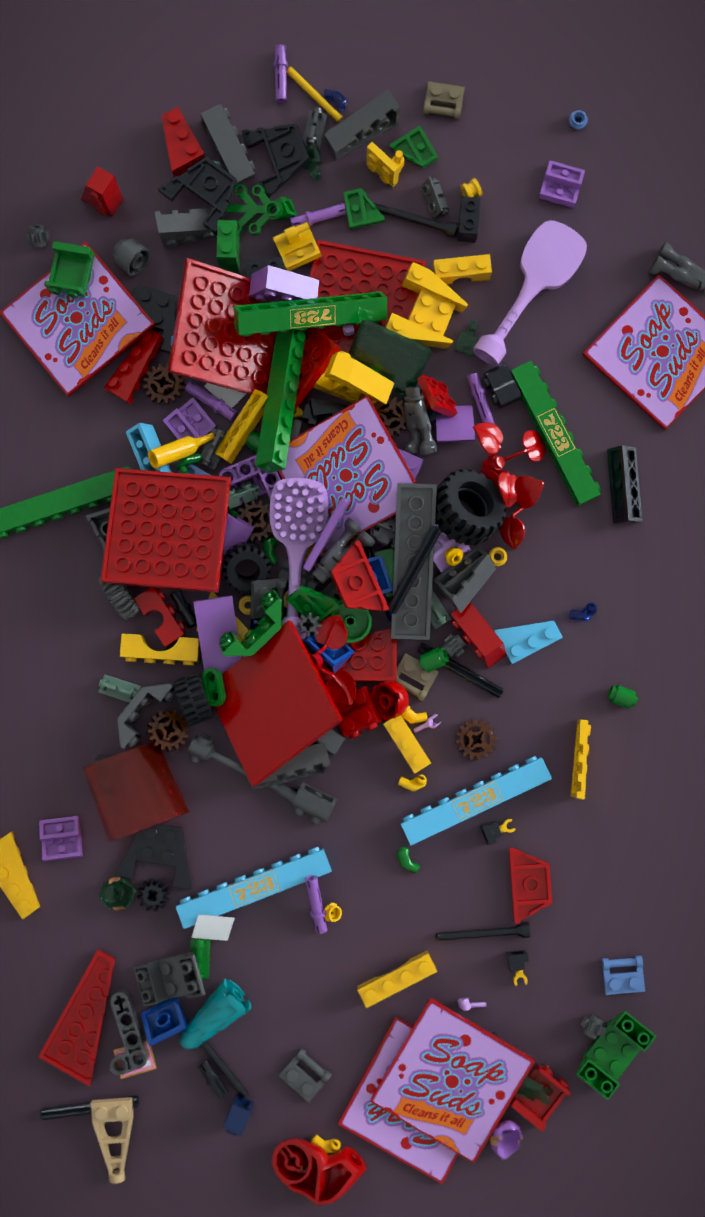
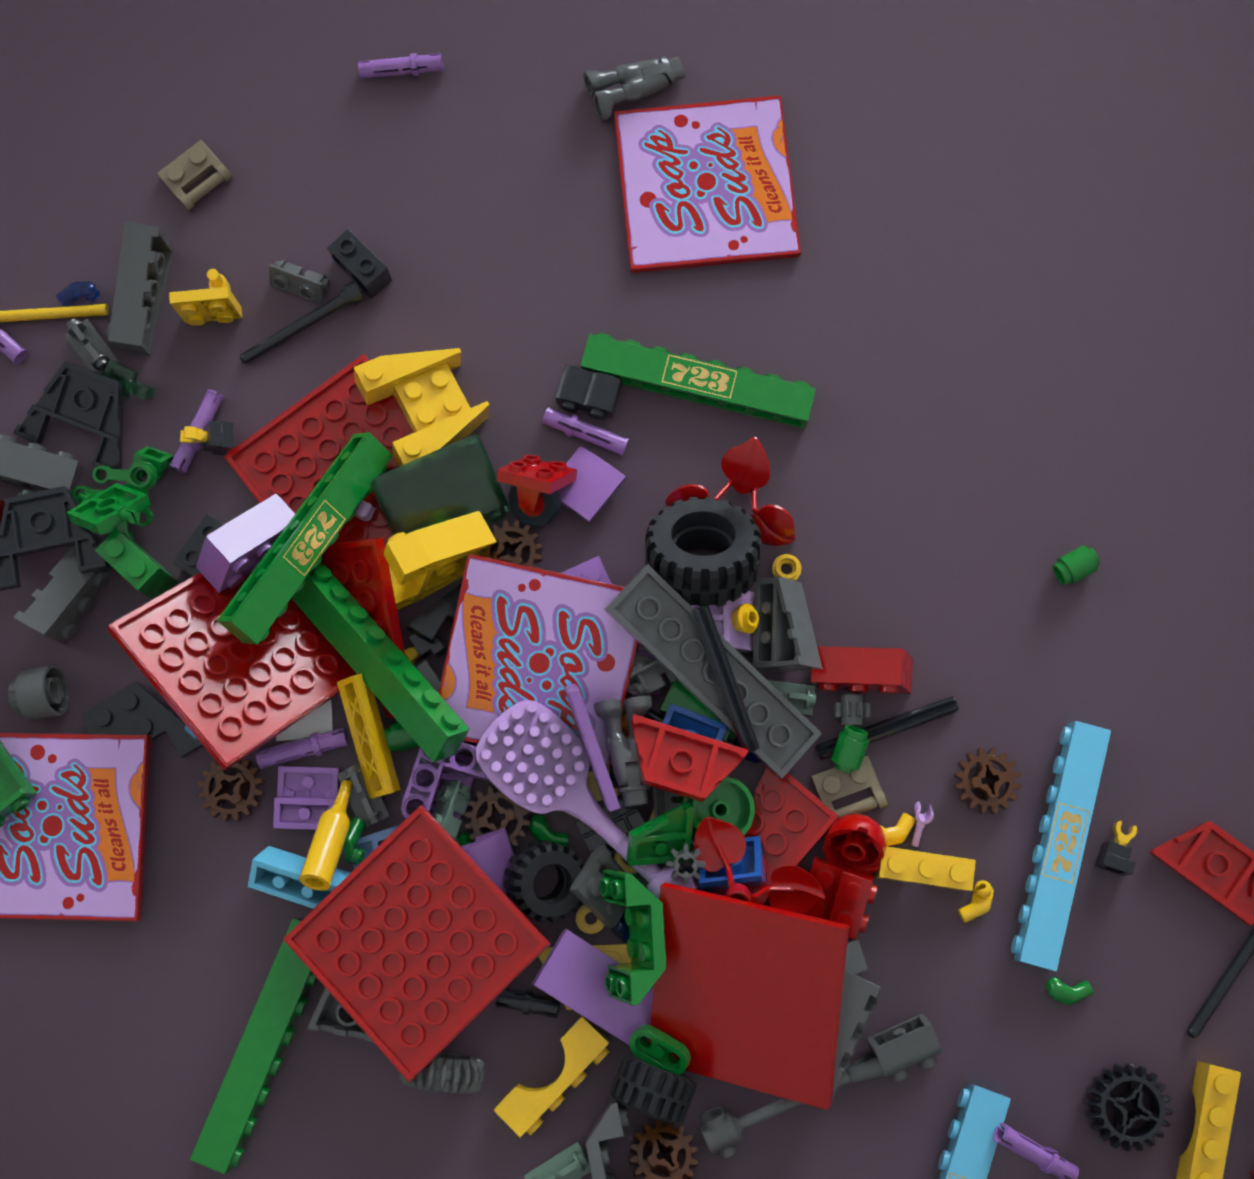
camera: 45 degrees left, 5 degrees down
(129, 373) = (180, 821): red wing -> none
(152, 601) = (540, 1040): red arch -> none
(243, 208) = (108, 508): none -> green plate
(297, 246) = (210, 485): yellow plate -> none
(323, 227) = (216, 436): none -> black piece
(333, 912) = (1061, 1140): yellow plate -> none
(361, 209) = (235, 375): green wing -> none
(384, 930) = (1123, 1118): none -> black gear
(416, 148) = (221, 251): green wing -> none
(418, 421) = (545, 520): dark grey piece -> none
(467, 340) = (500, 387): clear green plate -> none
(471, 189) = (327, 231): yellow wheel -> none
(473, 267) = (421, 305): yellow arch -> none
(490, 440) = (646, 456): red plant -> none
(527, 639) = (915, 616): medium azure wing -> none
(547, 263) = (492, 220): lavender piece -> none
(561, 184) = (413, 129): medium lavender slope -> none
(578, 115) = (355, 42): medium blue plate -> none
(580, 757) = (1115, 680): yellow wing -> none
(585, 614) = (940, 525): clear blue arm -> none
(590, 150) = (411, 64): none -> medium lavender pin
(622, 484) = (824, 354): black fence -> none

